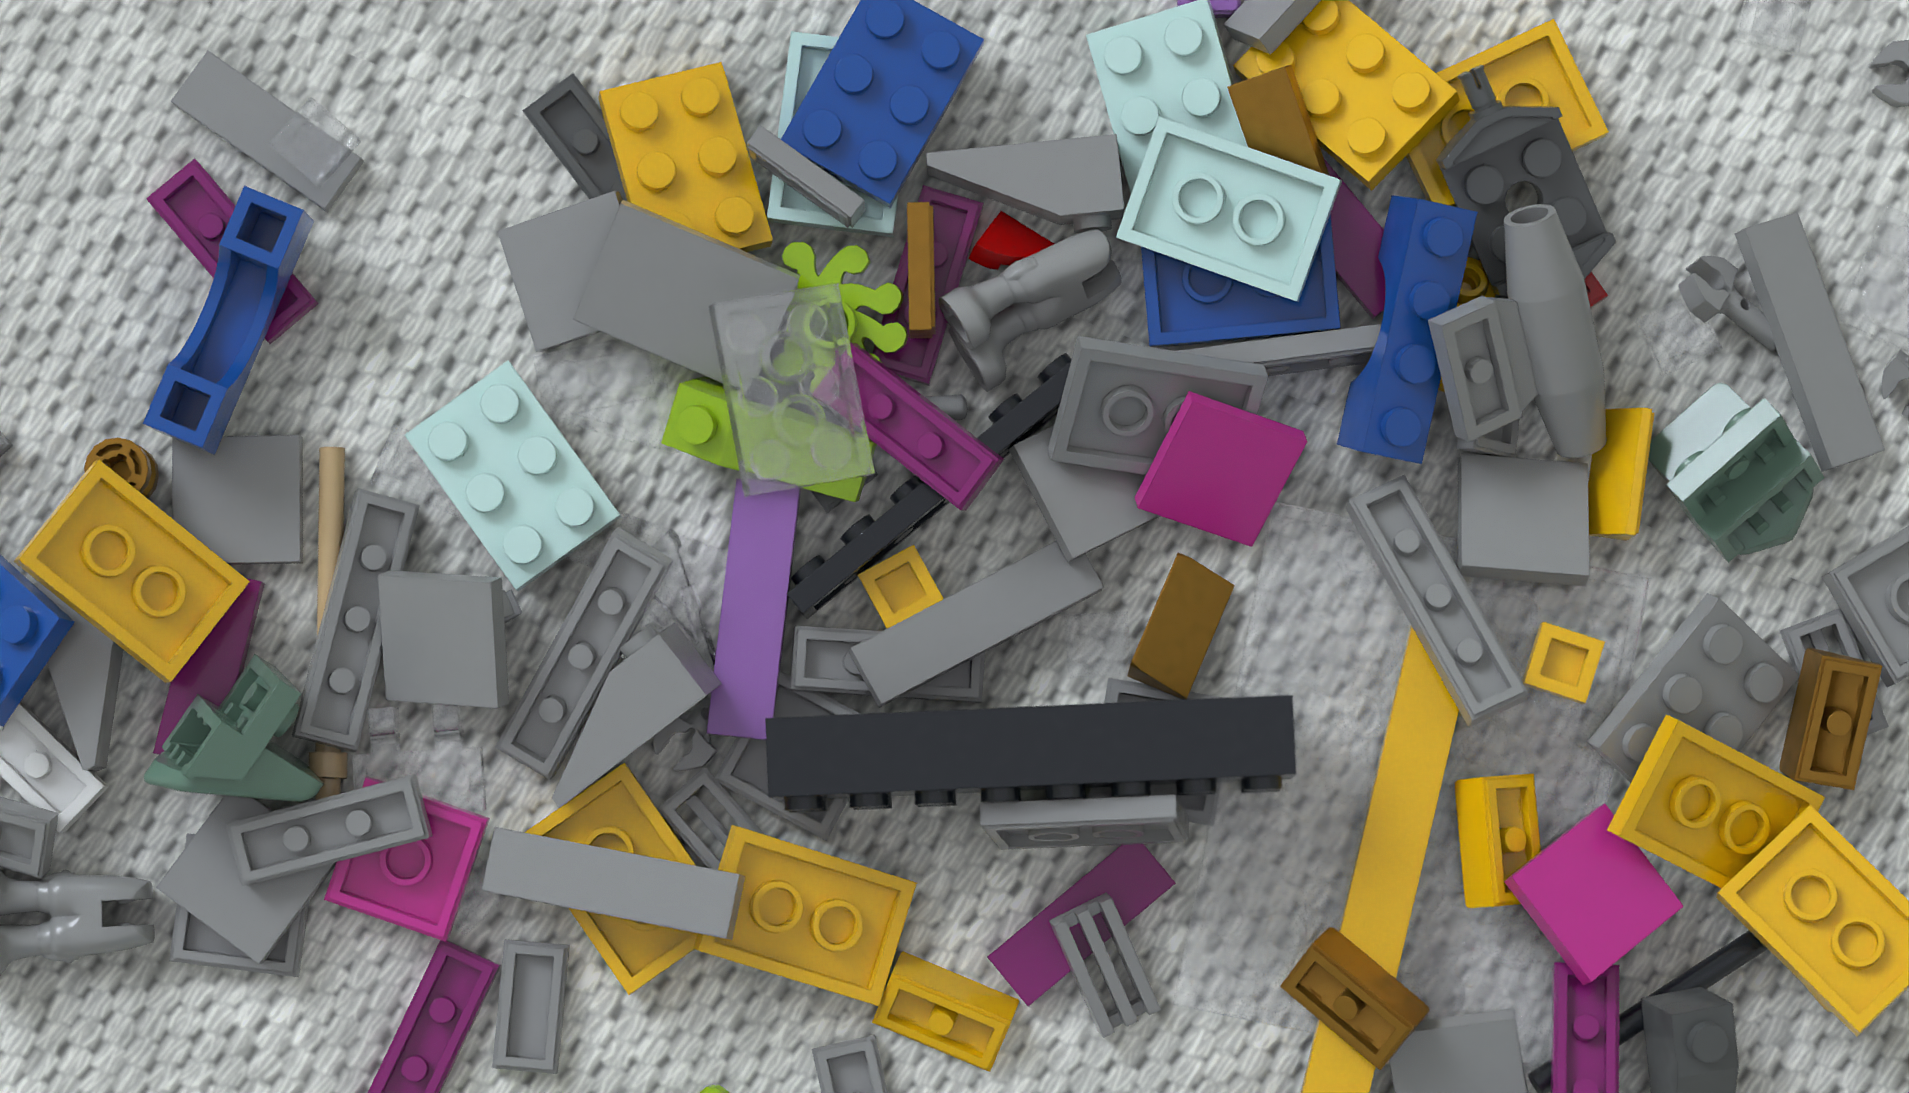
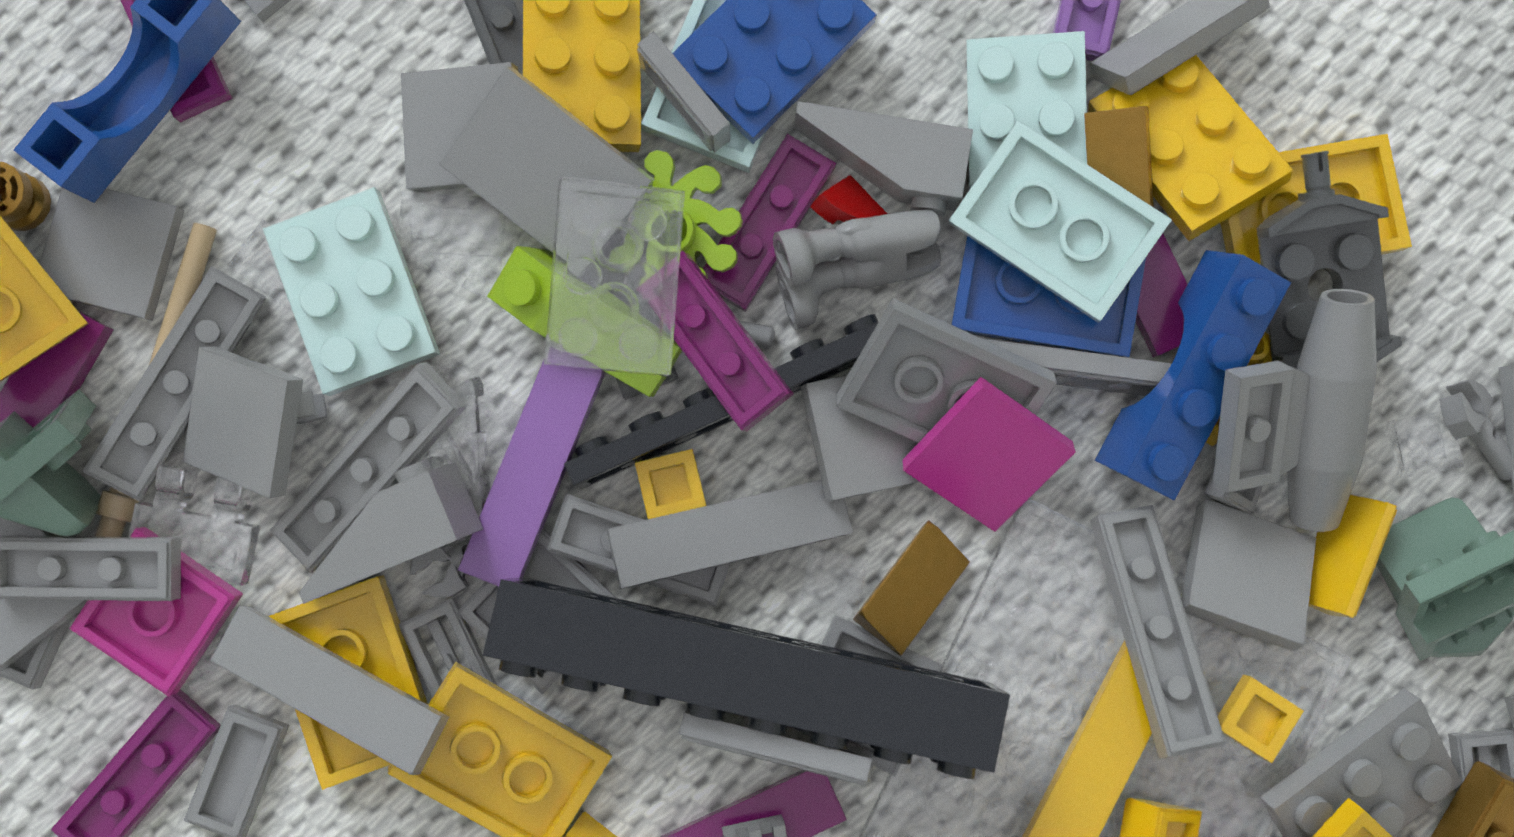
camera: 10 degrees right, 0 degrees up
(921, 269) = (765, 203): pearl gold tile -> none

